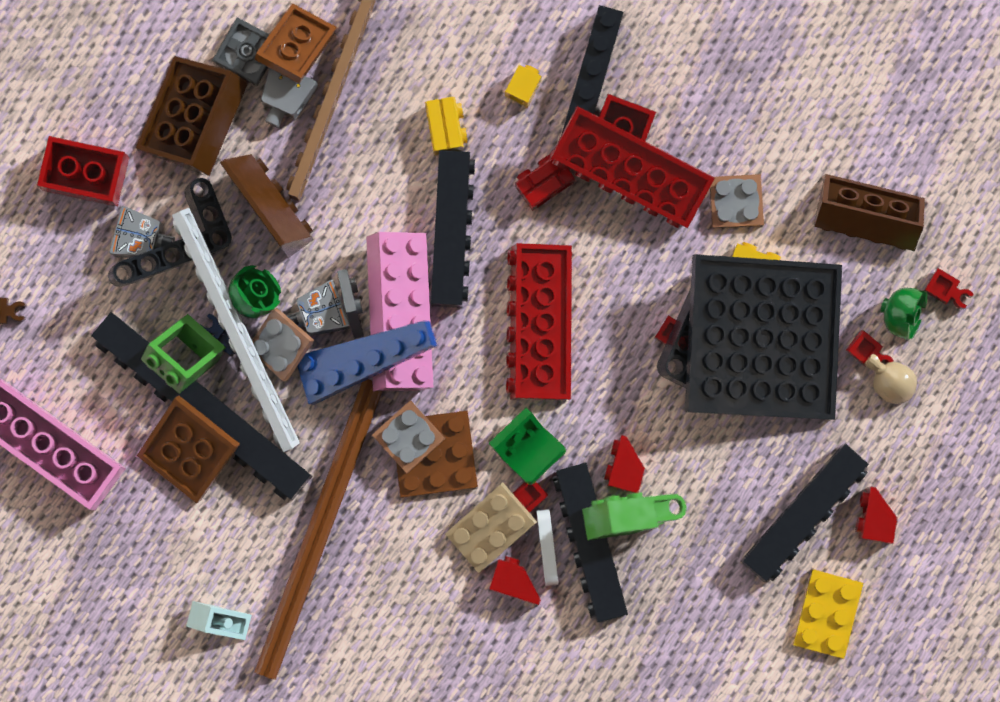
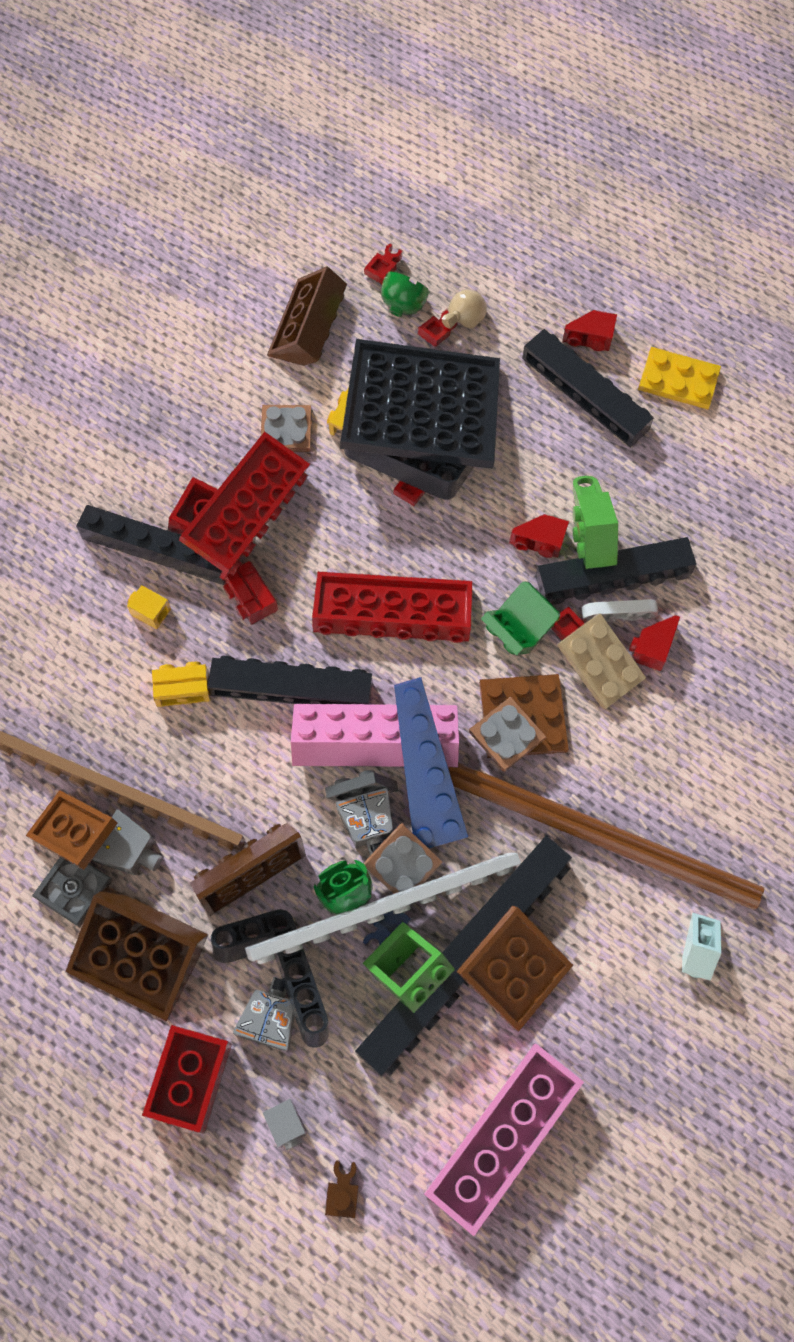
camera: 90 degrees left, 15 degrees down
(51, 257) = (285, 1125): none -> light grey brick

